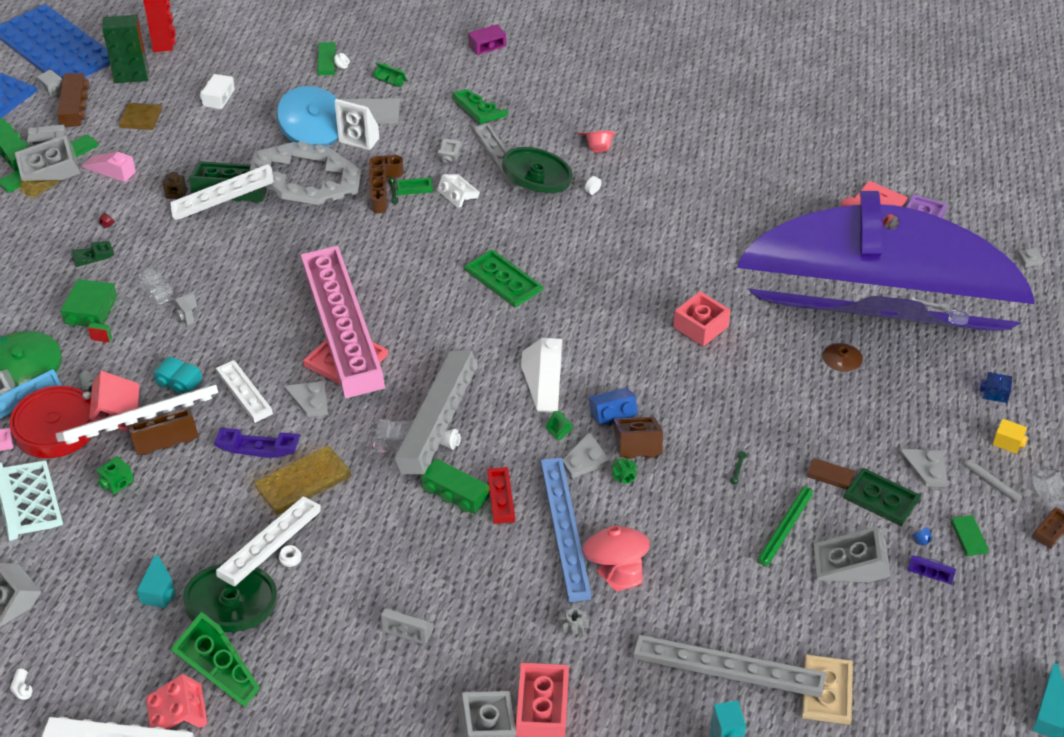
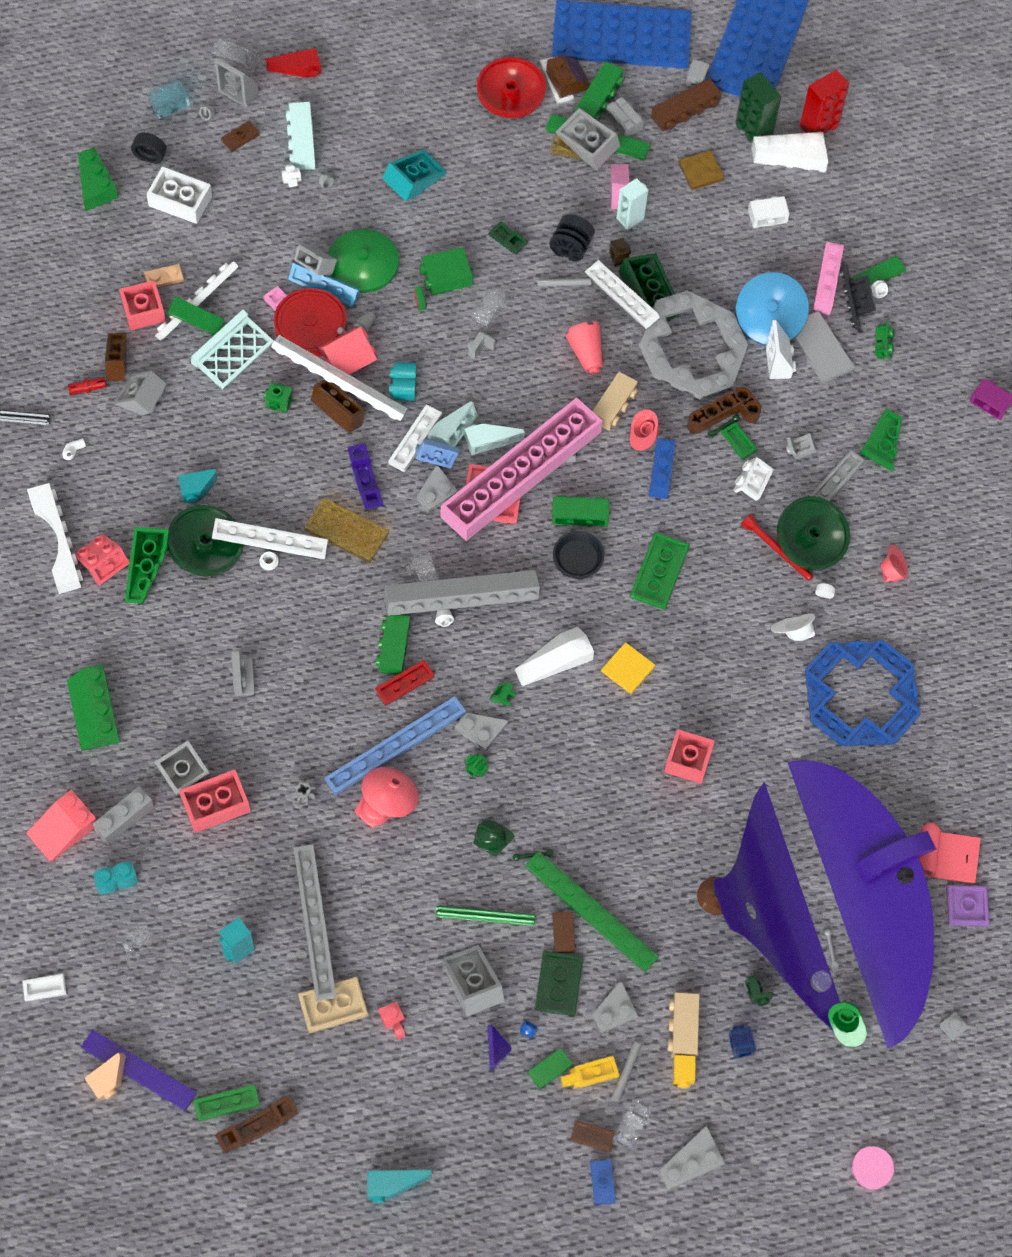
camera: 60 degrees right, 20 degrees up
(106, 221) = (551, 222): dark red hinge -> none
(135, 206) = (572, 237): none -> black wheel
(141, 153) = (632, 203): none -> light aqua brick
(171, 233) = (564, 282): none -> light grey bar
(175, 58) = (792, 150): none -> white wedge
(250, 238) = (587, 345): none -> coral cone
(257, 361) = (453, 426): none -> light aqua slope
(276, 375) = (436, 453): none -> medium blue bracket
(286, 336) = (488, 437): none -> light aqua slope
(299, 75) = (828, 278): none -> bright pink brick
(312, 236) = (616, 400): none -> tan brick
(338, 69) = (859, 295): none -> black bracket
(363, 231) = (644, 430): none -> coral piece
(407, 236) = (662, 468): none -> blue brick
(409, 304) = (580, 511): none -> green brick
(453, 319) = (578, 554): none -> black piece
(500, 205) = (751, 524): none -> red piece
(586, 332) = (628, 668): none -> yellow tile
(612, 405) = (544, 726): blue brick -> none
(616, 211) = (796, 628): none -> white piece
(638, 437) = (519, 760): reddish brown slope -> none
(687, 223) = (866, 732): none -> blue plate
(703, 491) = (492, 837): none -> dark green piece
(817, 445) = (591, 911): none -> green plate
(864, 643) = (392, 1017): none -> coral plate
(950, 361) = (754, 990): none -> dark green bracket
(965, 419) = (684, 1024): none -> tan brick
(987, 505) = (591, 1073): none -> yellow hinge
(1006, 312) = (847, 1023): none -> piece

